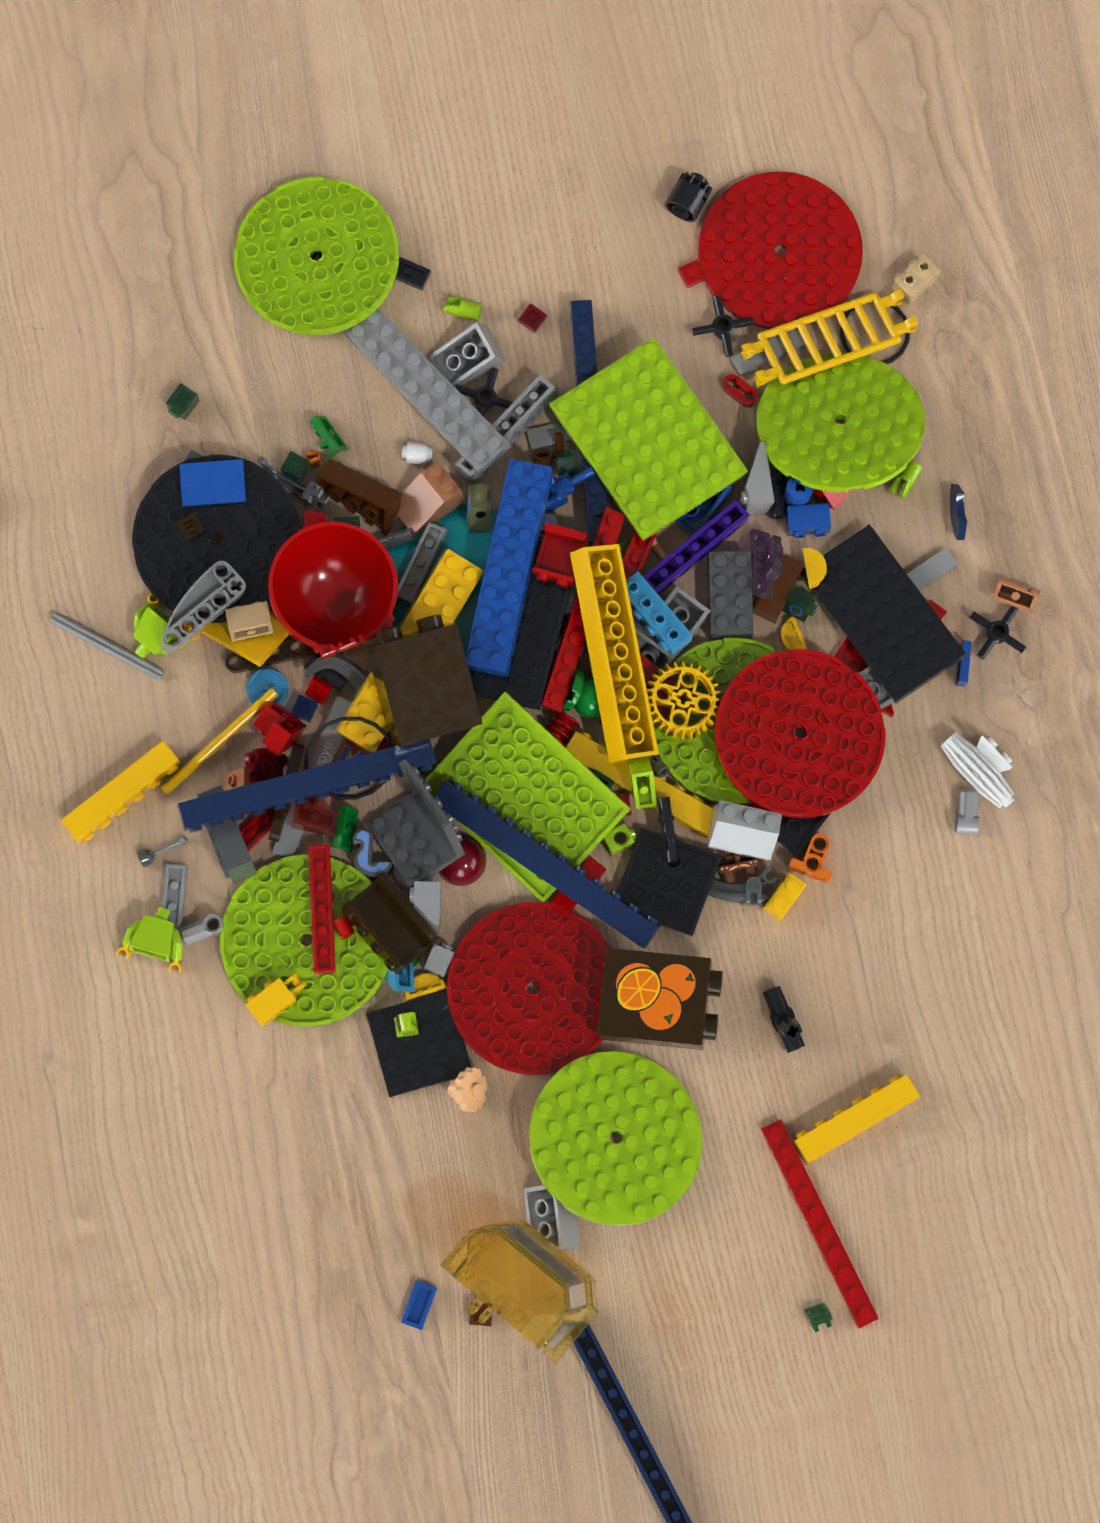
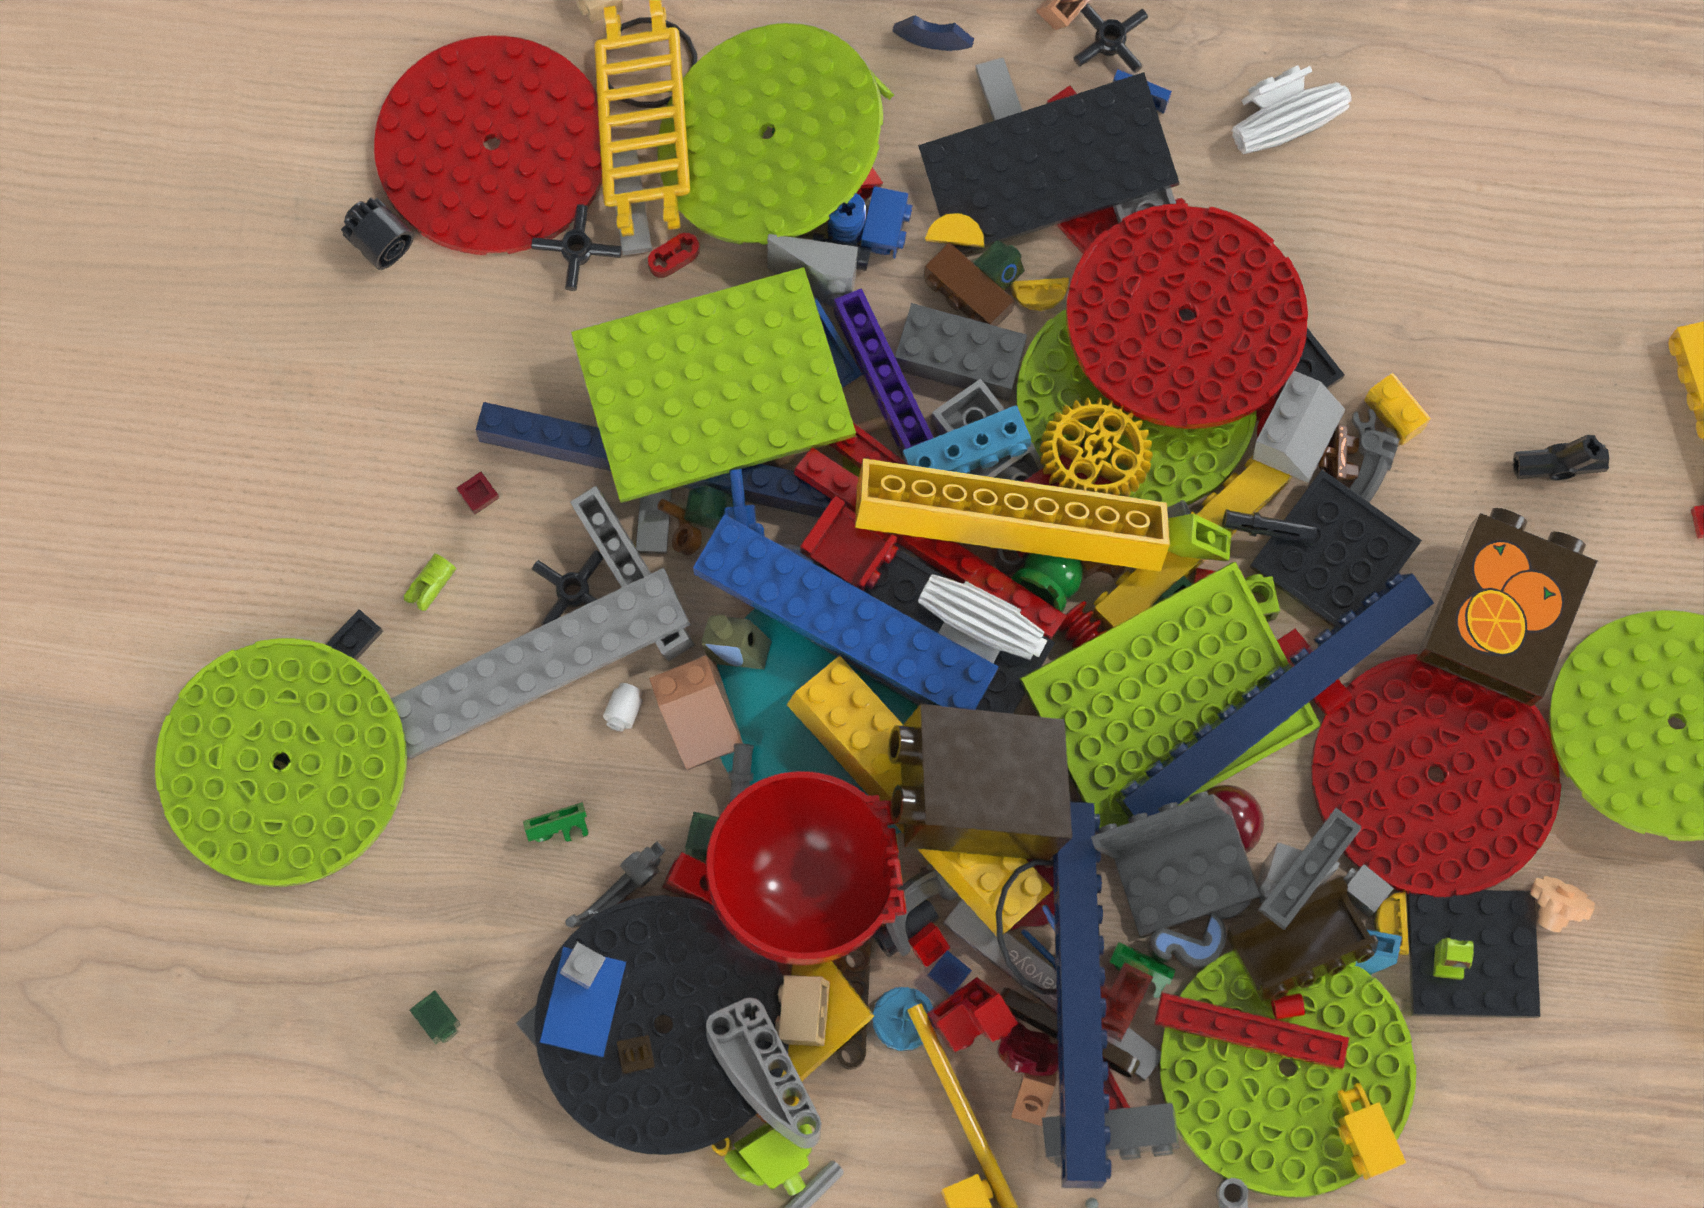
camera: 70 degrees left, 5 degrees down
(231, 472) = (582, 965): none -> light grey brick
(295, 467) = (589, 882): clear green brick -> none
(316, 461) = (588, 856): orange hinge -> none
(360, 494) = (659, 801): reddish brown wedge -> none
(421, 562) = (785, 740): light grey tile -> none
(427, 904) = (1309, 868): none -> dark grey plate
(468, 355) = (503, 595): light grey slope -> none
(534, 651) = (981, 620): none -> white plate
(692, 273) = (485, 266): red plate -> none
(766, 562) = (933, 286): clear purple bracket -> none
(815, 855) = (1353, 349): orange tile -> none
(967, 820) = (1352, 152): light grey piece -> none

